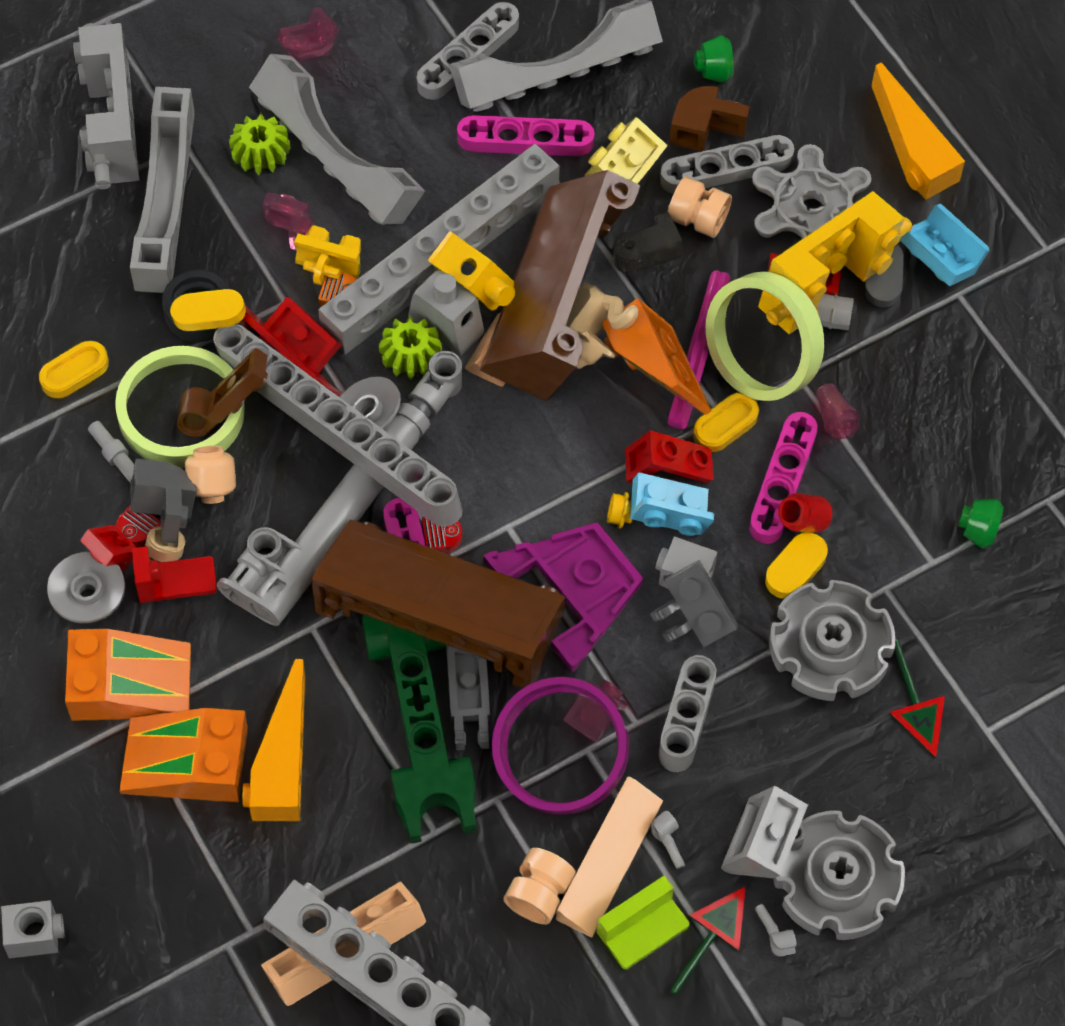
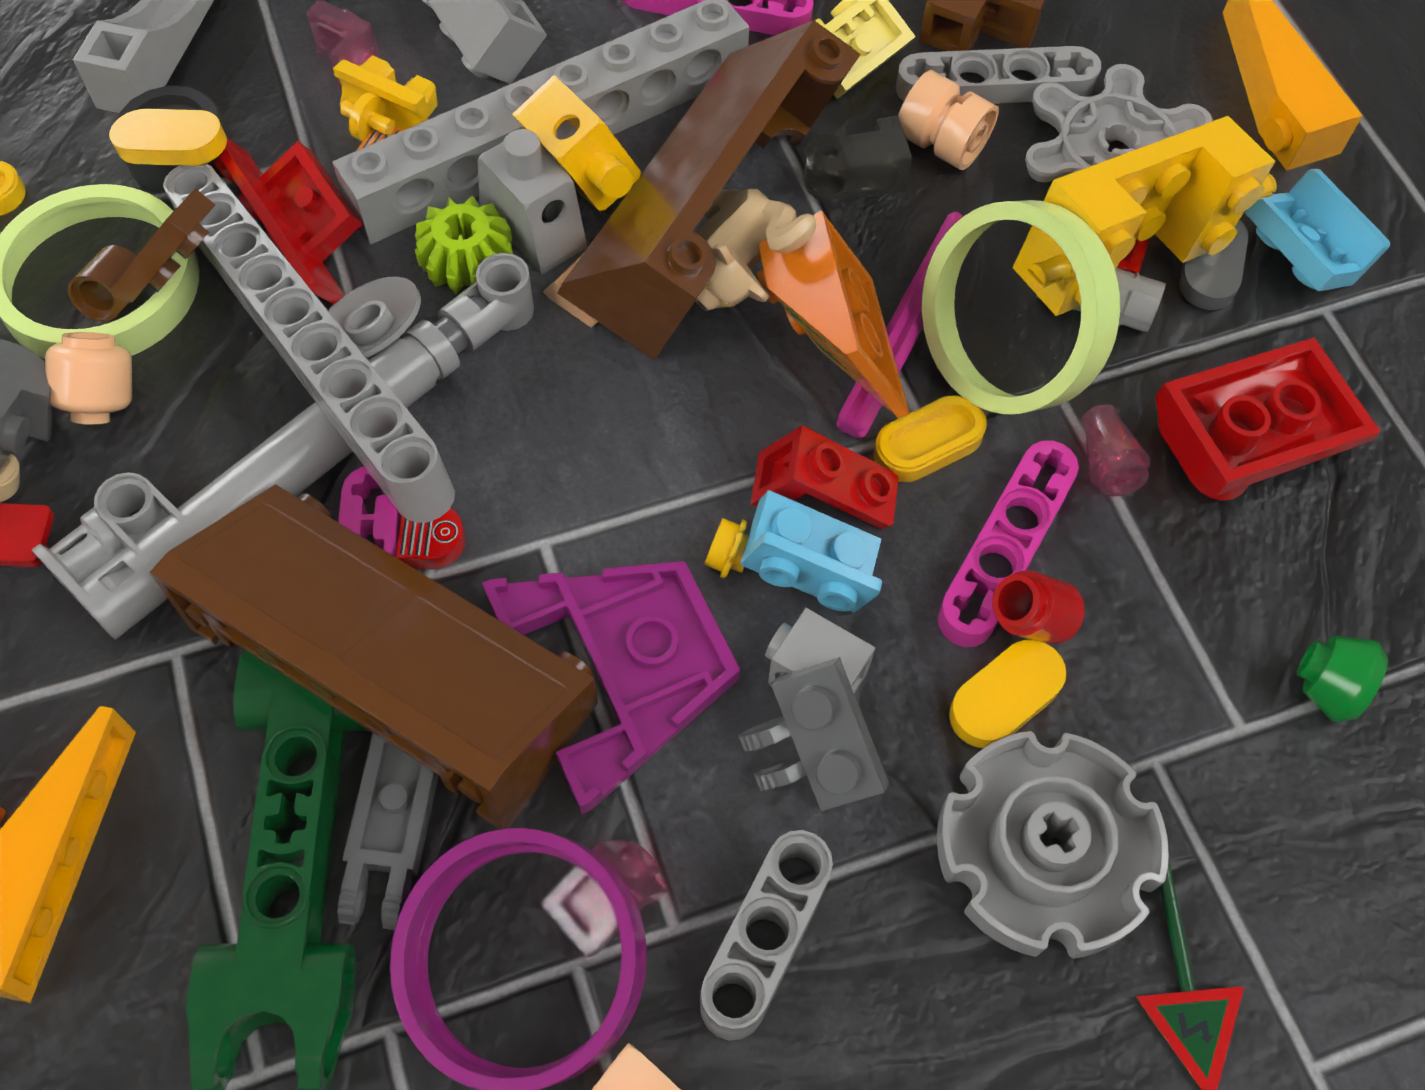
camera: 10 degrees right, 0 degrees up
(922, 375) = (1260, 418): none -> red slope

